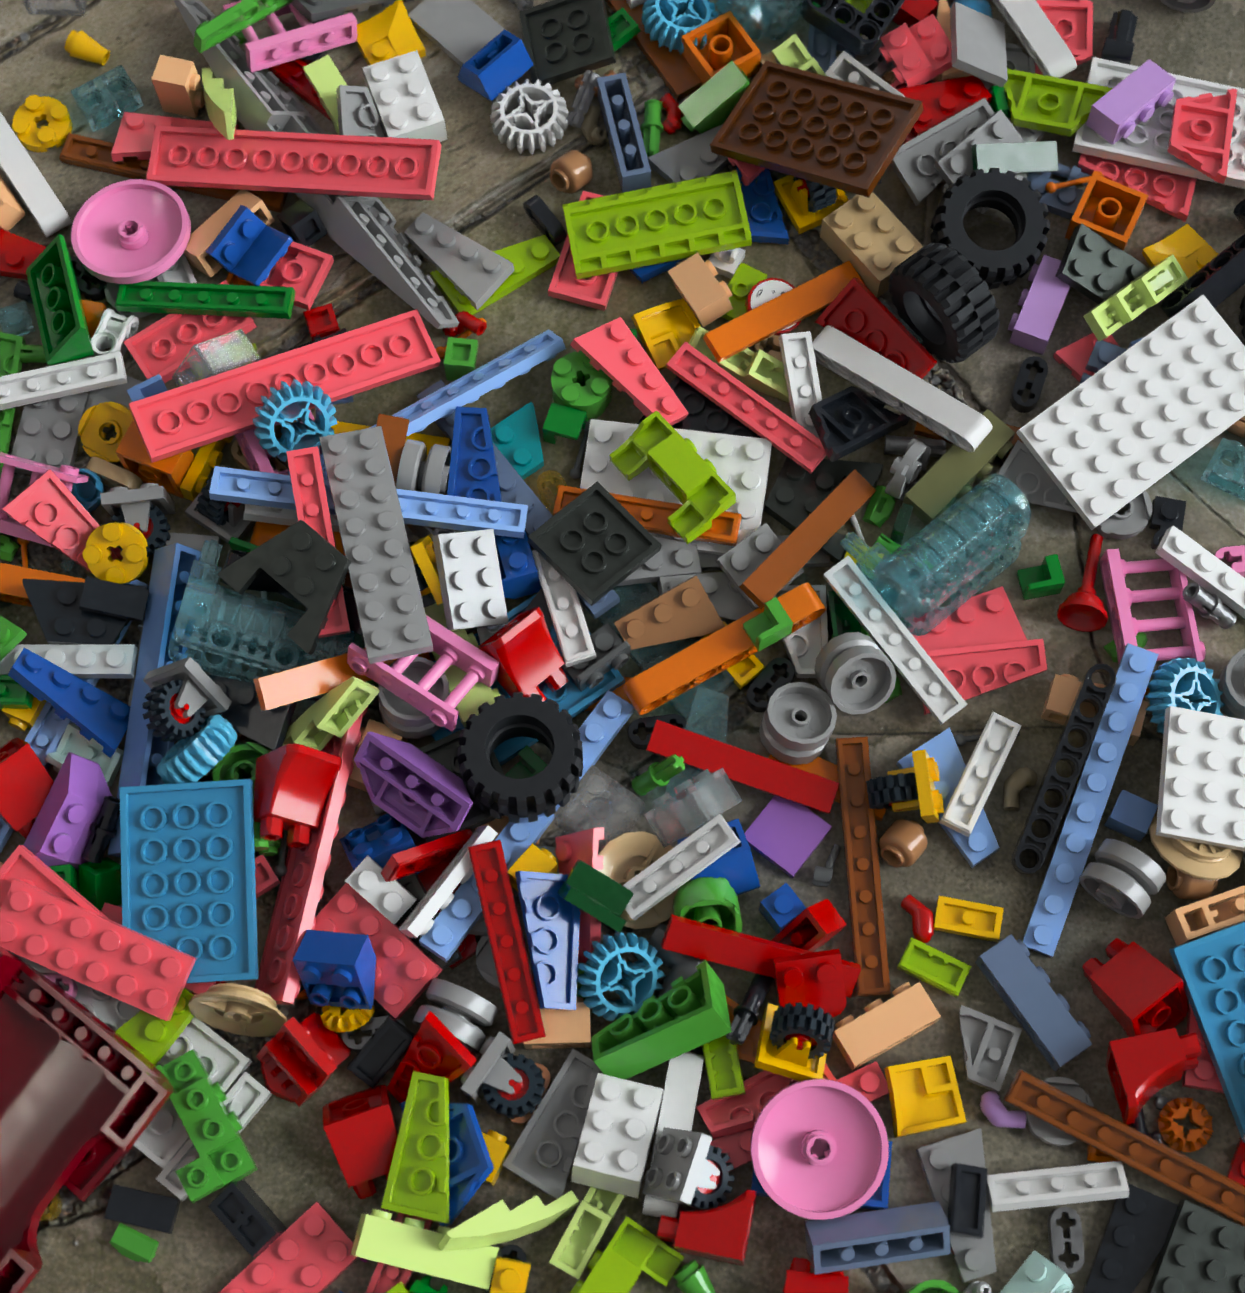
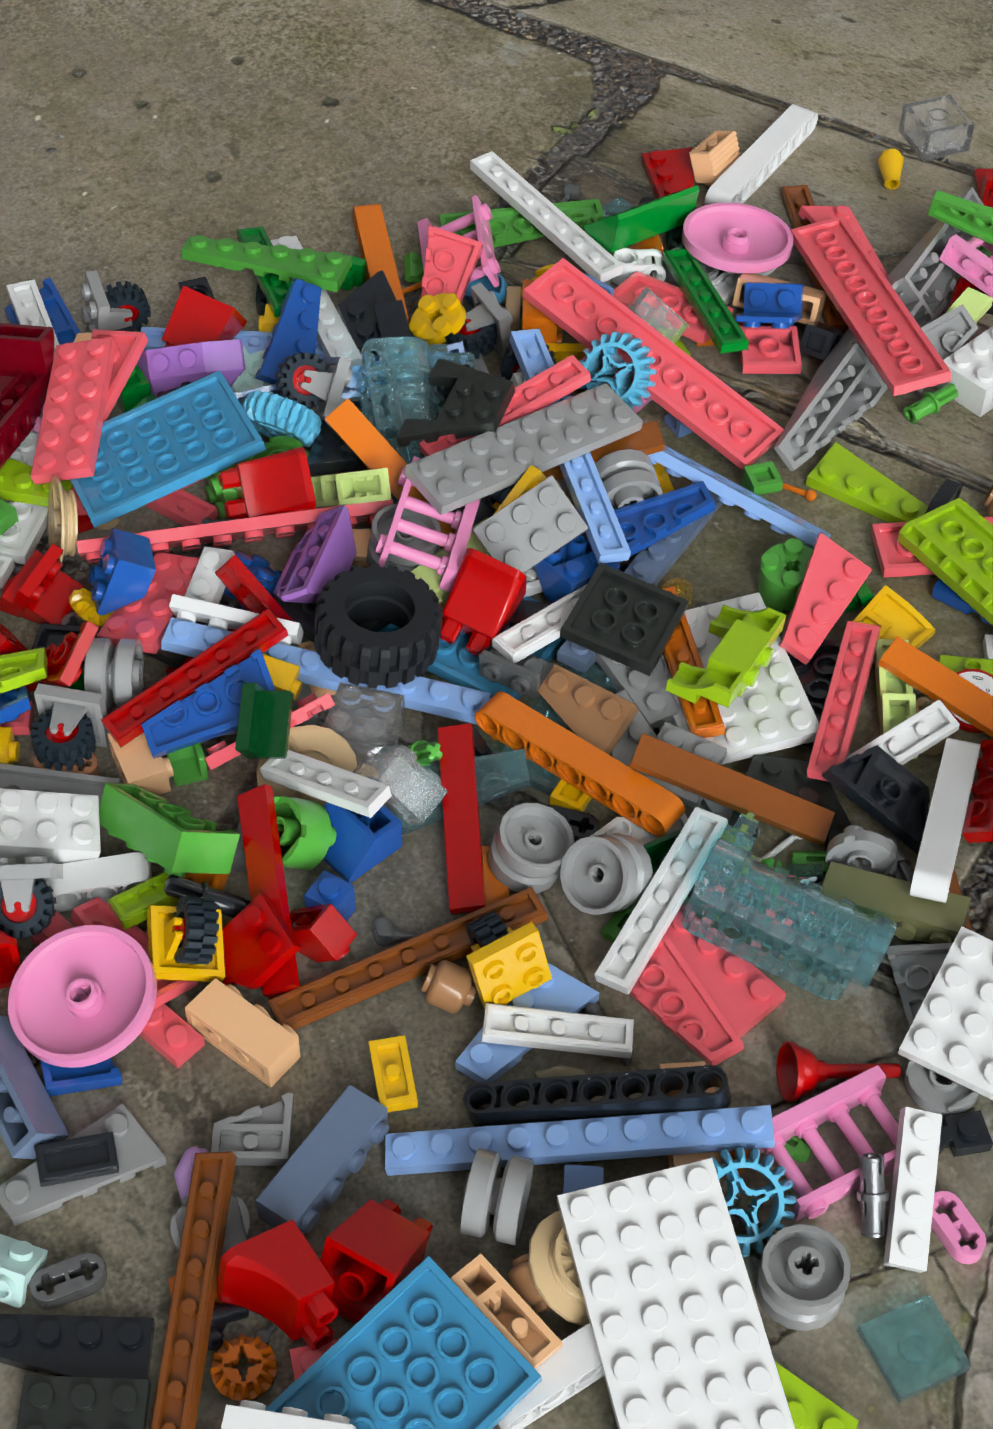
camera: 65 degrees right, 20 degrees down
(38, 109) = (796, 161): yellow plate -> none
(50, 431) = (522, 259): light grey plate -> none
(105, 93) = (854, 190): clear light blue brick -> none
(178, 86) = (892, 222): light nougat brick -> none
(219, 103) = (888, 242): yellowish green slope -> none
(321, 321) = (744, 387): red tile -> none
(464, 262) = (859, 454): light grey wing -> none
(466, 322) = (799, 479): red arm -> none
(519, 440) = (708, 557): teal wing -> none
(563, 422) = (742, 573): green panel -> none
(642, 972) = (212, 774): medium azure gear -> none
(700, 289) = (950, 631): light nougat brick -> none
(768, 626) = (612, 778): bright green panel -> none
(786, 834) = (413, 889): medium lavender tile -> none
(921, 918) = (373, 1029): red arm -> none
(924, 1096) = (181, 1091): yellow plate -> none
(934, 967) = (326, 1059): lime plate -> none
(1041, 579) = (814, 1029): green panel -> none
(1057, 1186) = (124, 1249): white plate -> none

